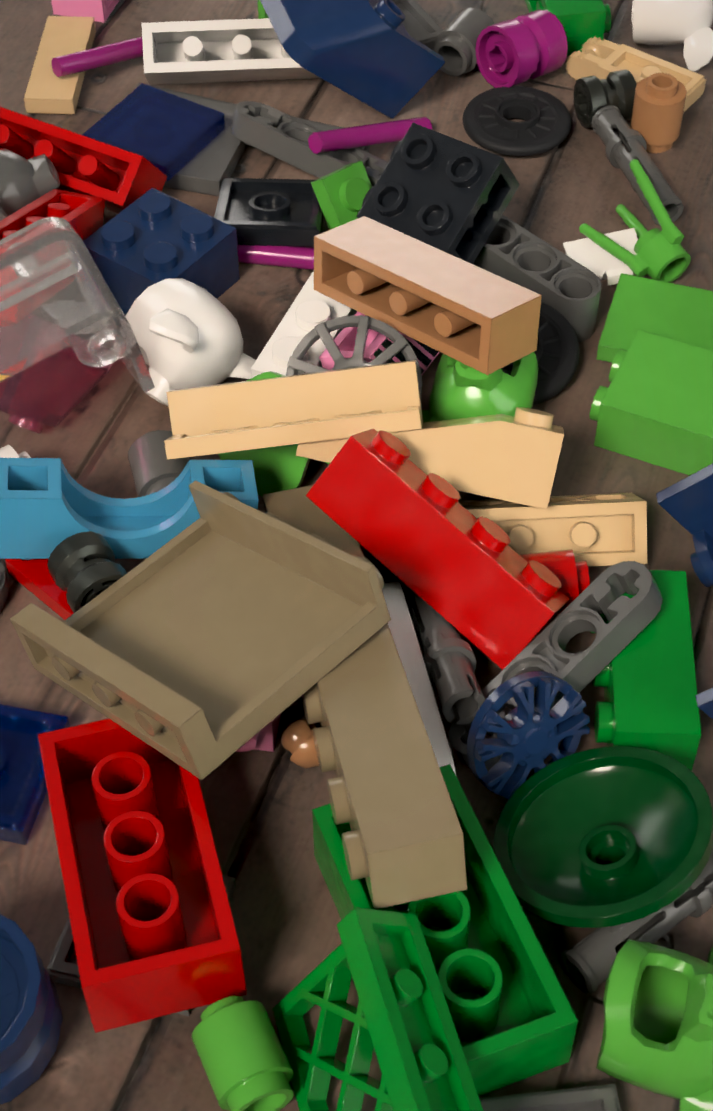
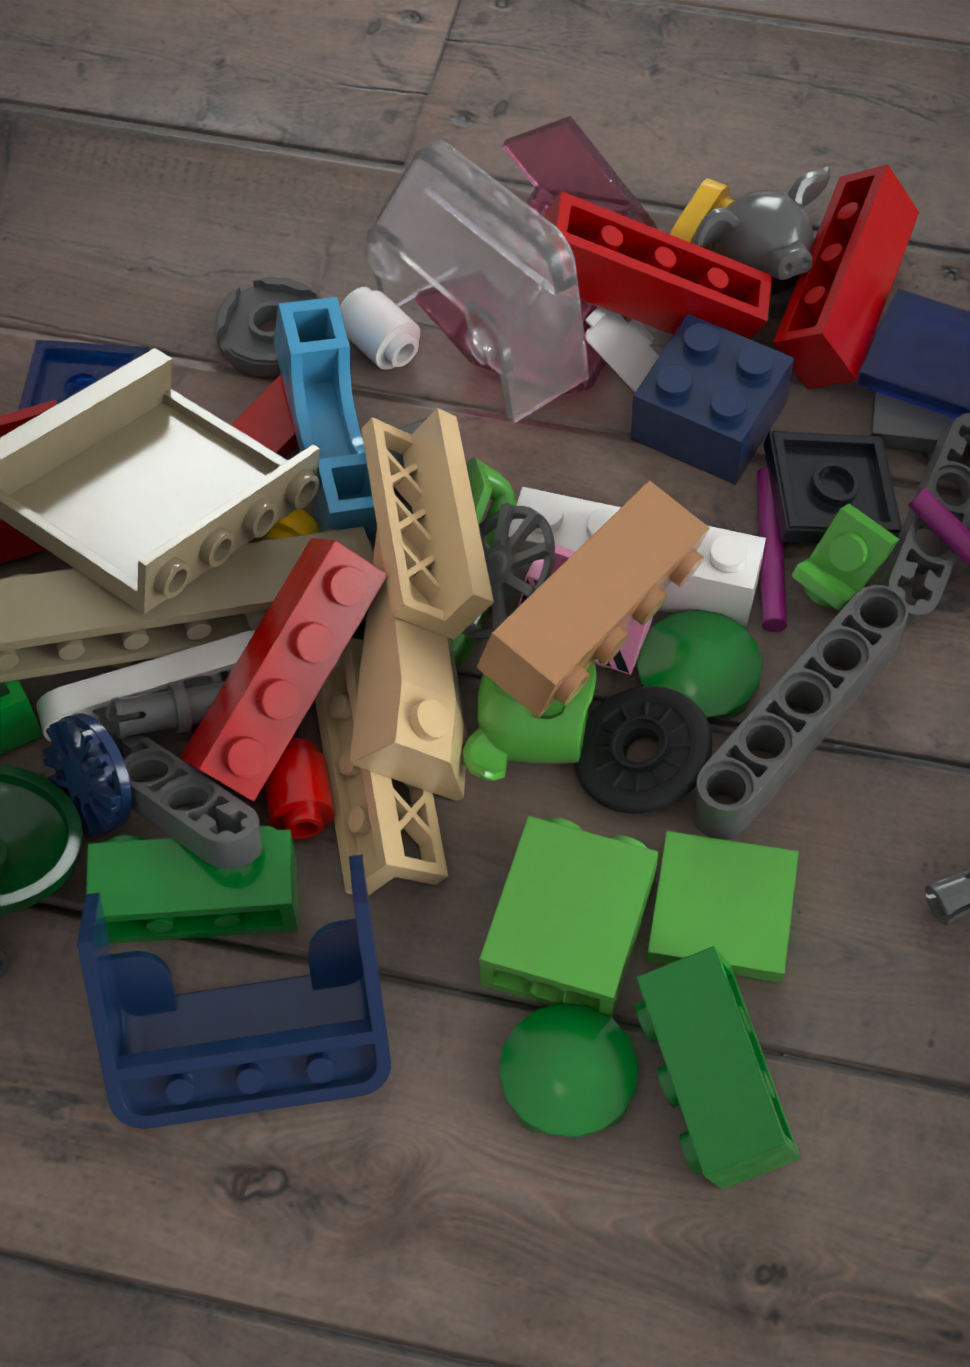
camera: 85 degrees right, 10 degrees up
(77, 570) = (257, 409): pearl dark grey wheel -> none
(186, 337) = (573, 431): white piece -> none
(441, 192) = (800, 614): black brick -> none
(599, 260) = (840, 842): white piece -> none
(656, 250) = (835, 888): bright green plant -> none

